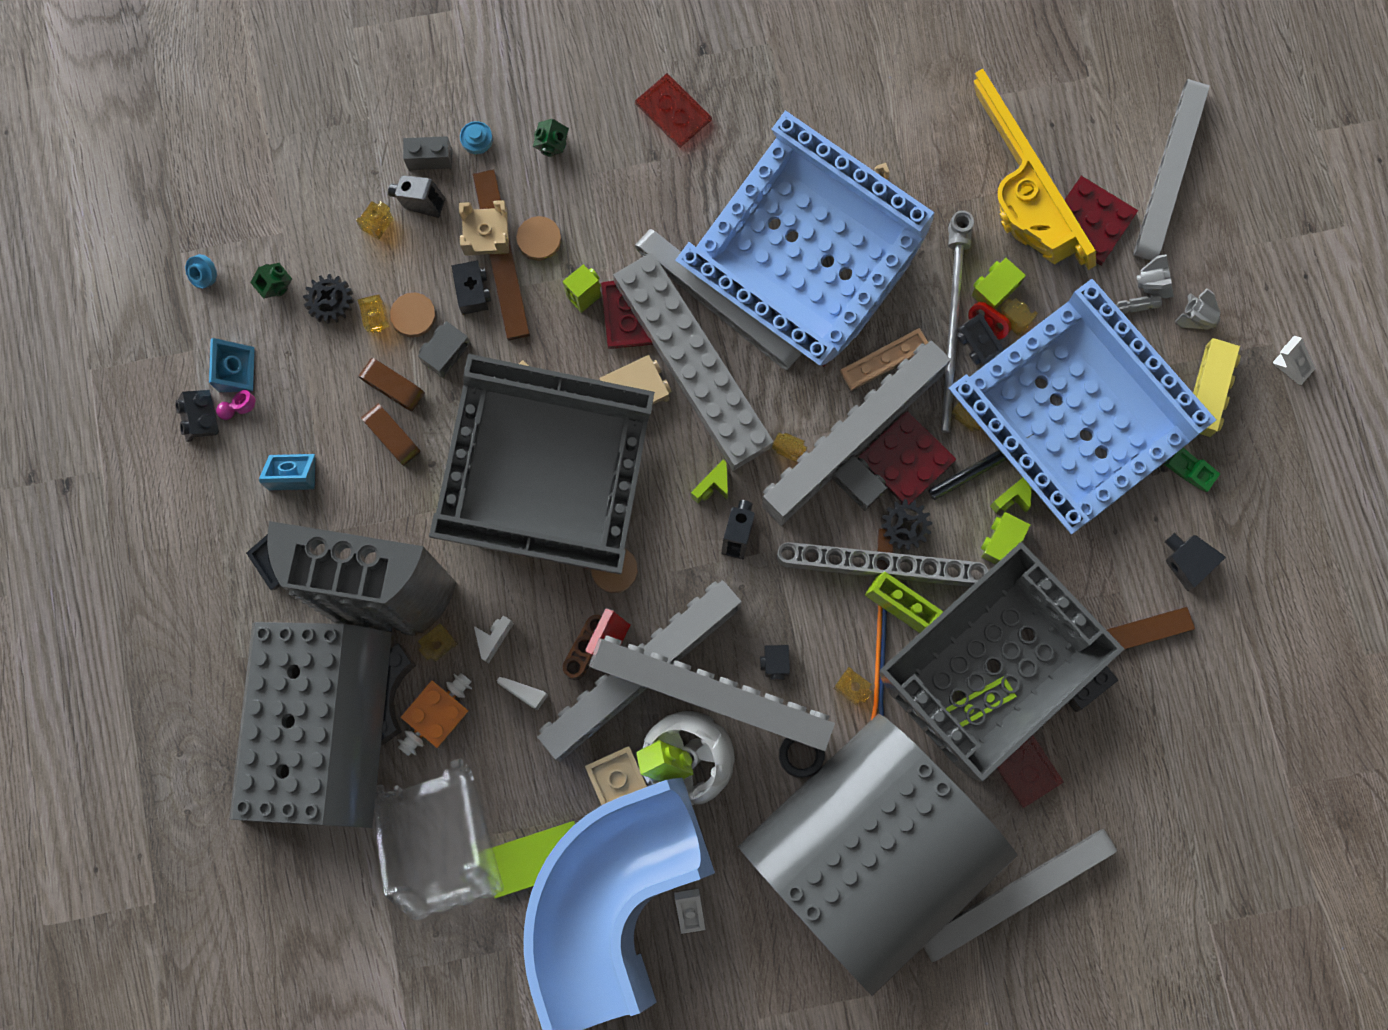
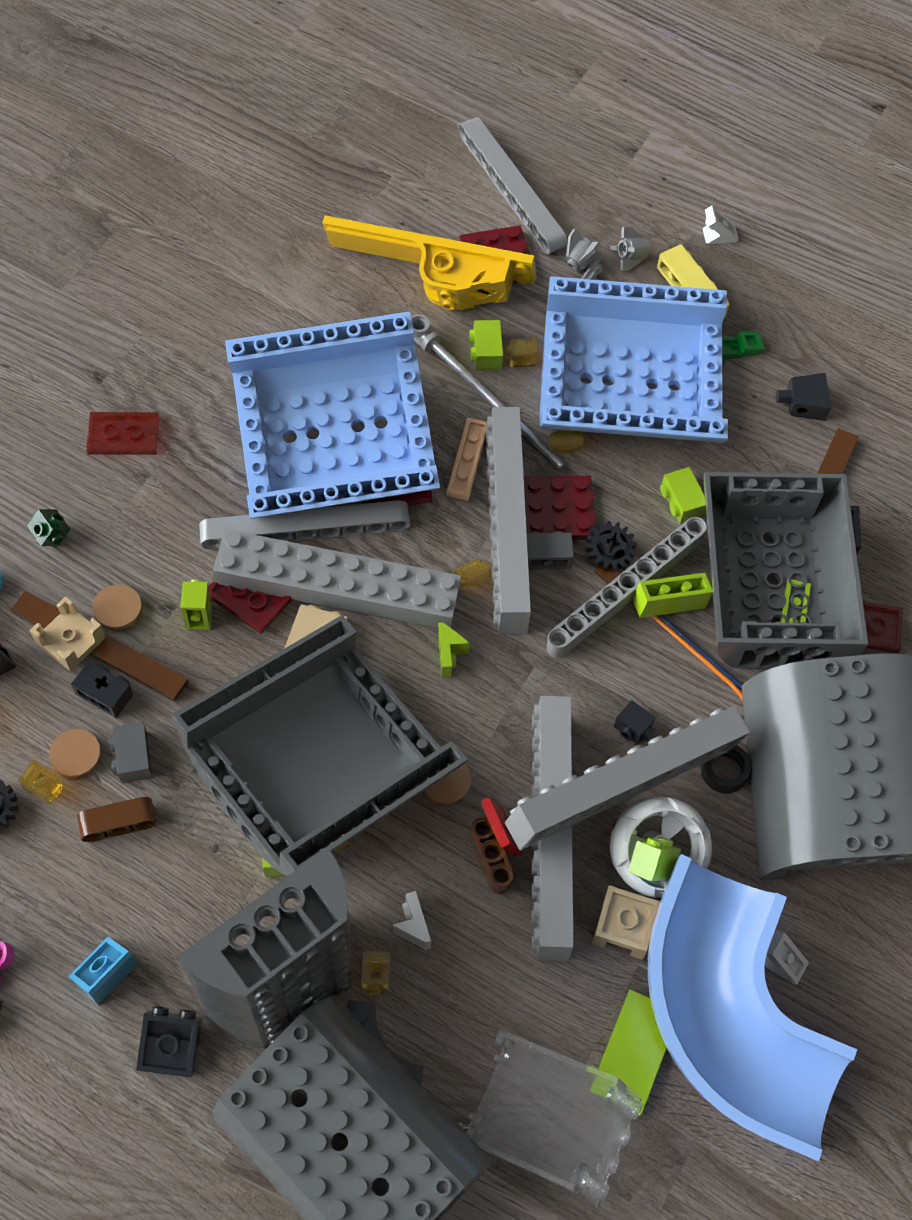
camera: 55 degrees left, 15 degrees down
(390, 434) = (158, 856): reddish brown beam -> none
(434, 714) = (436, 1026): orange plate -> none
(529, 695) = (489, 935): white slope -> none
(738, 530) = (506, 661): black torso -> none
(844, 687) = (698, 690): clear yellow brick -> none
(967, 474) = (609, 475): black axle -> none
(980, 340) = (517, 387): black bracket -> none
(992, 318) = (507, 371): red plate -> none
(1019, 492) = (657, 458): lime slope -> none

